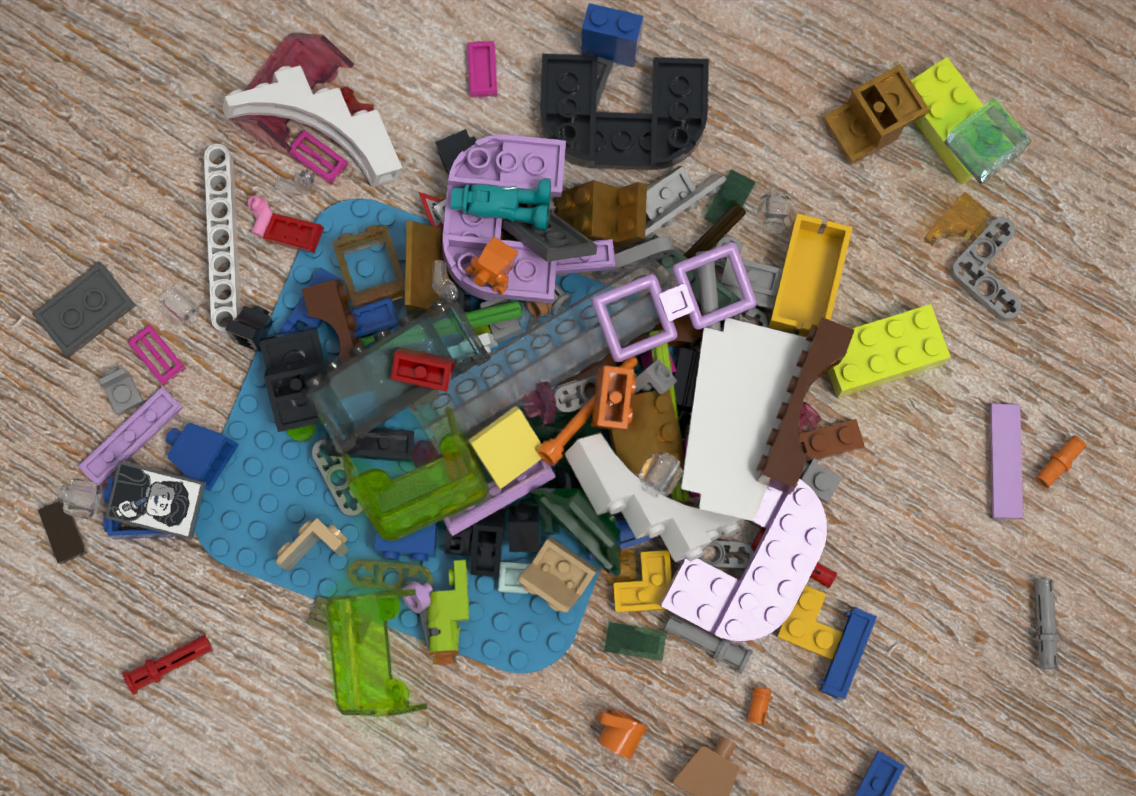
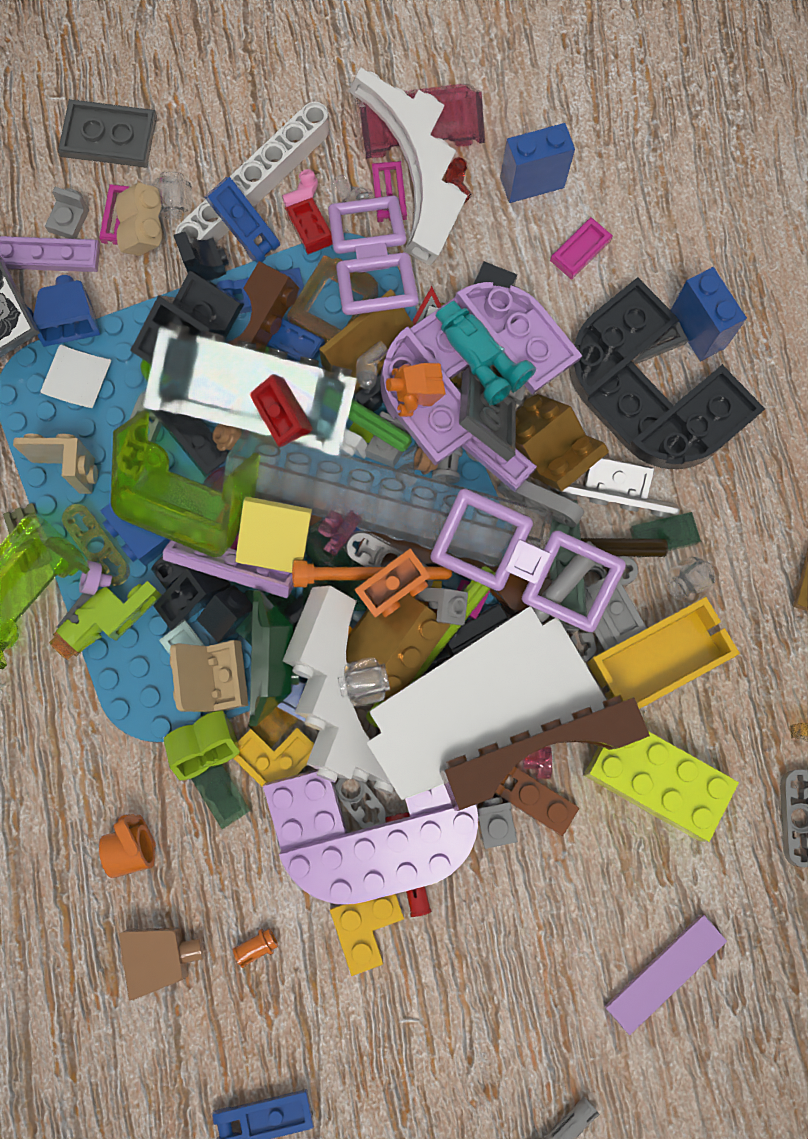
camera: 45 degrees right, 0 degrees up
(179, 344) = (138, 218): none -> tan brick
(249, 274) = (242, 219): none -> blue plate
(253, 488) = (75, 377): none -> white sticker
(364, 211) = (372, 255): none -> lavender bar
(400, 43) = (536, 162): none -> blue brick
(402, 421) = (226, 436): none -> medium nougat plate
(595, 623) = (201, 745): none -> lime brick
(721, 649) = (274, 871): light grey pin -> none
(848, 654) = (366, 986): blue container -> none
(1060, 461) = (712, 1024): orange pin -> none

